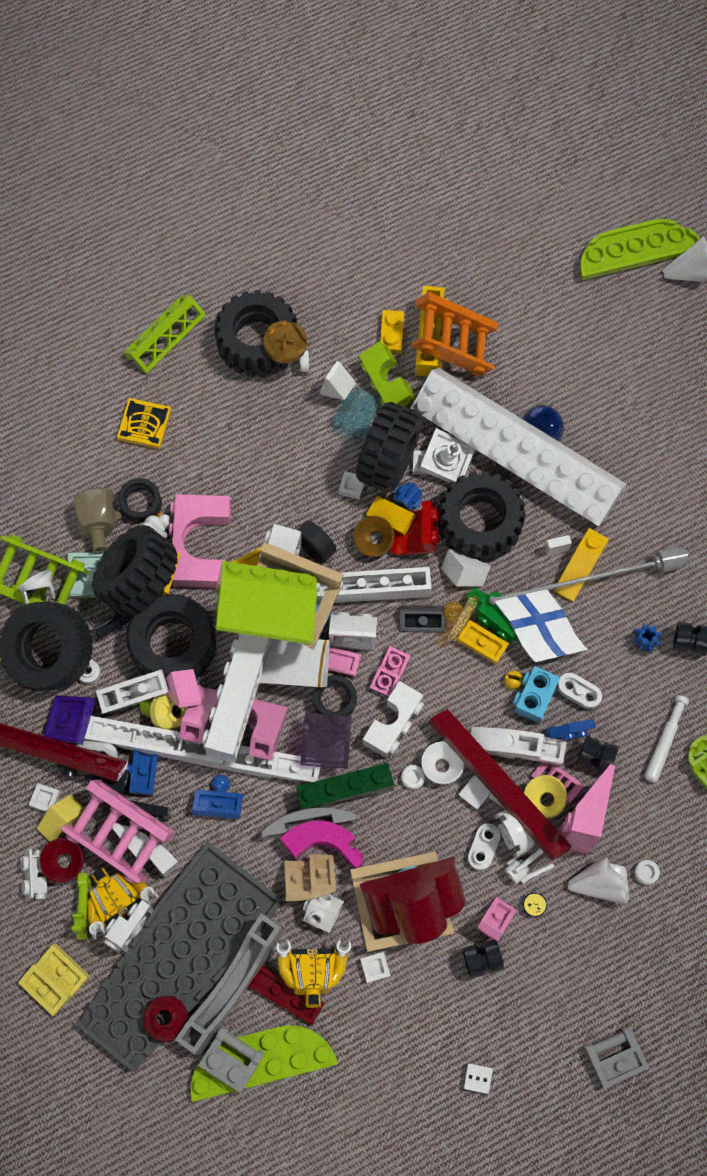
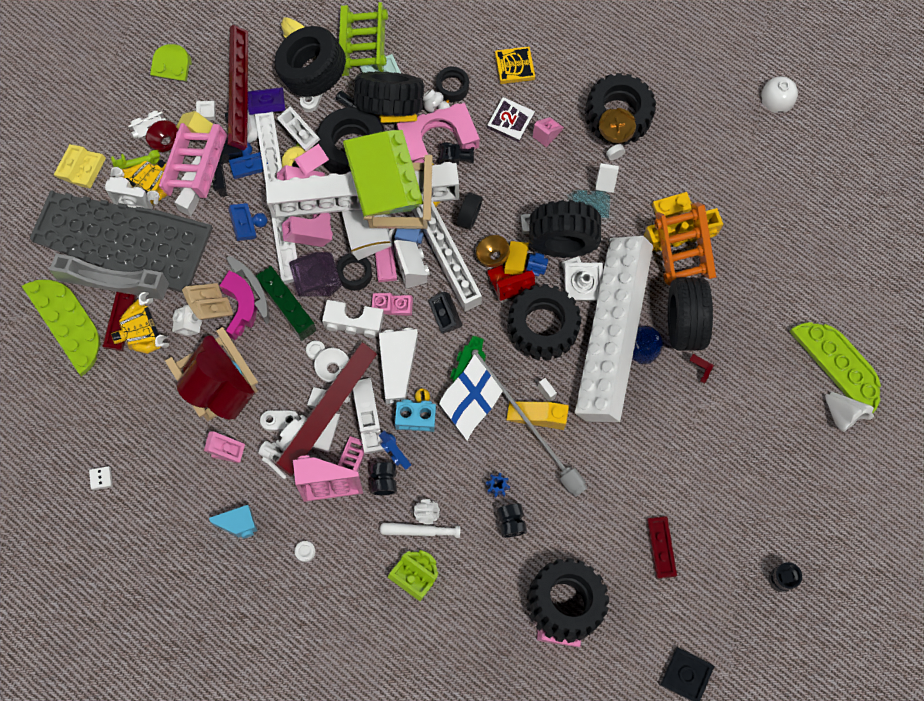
camera: 65 degrees right, 0 degrees up
(40, 580) = (357, 39): white piece -> none
(96, 516) = (425, 58): dark tan piece -> none
(159, 327) = (595, 44): lime fence -> none
(167, 1032) = (80, 246): dark red piece -> none
(213, 455) = (510, 119): none -> tile
(227, 1067) = (50, 298): light grey plate -> none
(232, 532) = (455, 153): none -> black connector
(246, 422) = (546, 131): none -> bright pink slope
(306, 168) = (779, 94): none -> white cylinder
(375, 967) = (160, 375): white tile -> none
(377, 363) = (636, 203): lime arch -> none
(458, 615) = (454, 335): clear yellow tile -> none
(464, 569) = (495, 328): white slope -> none
(466, 691) = (397, 361): none -> white slope
(482, 642) = (442, 362): yellow plate -> none
(483, 958) = (190, 447): black wheel -> none
(534, 905) = (247, 474): light yellow tile -> none
(538, 362) = (690, 314): none -> black tyre
(547, 784) = (331, 440): light yellow piece -> none
(580, 690) = (432, 449): white plate -> none
(590, 934) = (236, 522): none -> medium azure slope
(595, 375) = (704, 364): none -> dark red tile
(602, 882) = (283, 519): white hat -> none
(620, 1065) = (142, 579): light grey plate -> none
(651, 723) = (426, 511): none -> white gear

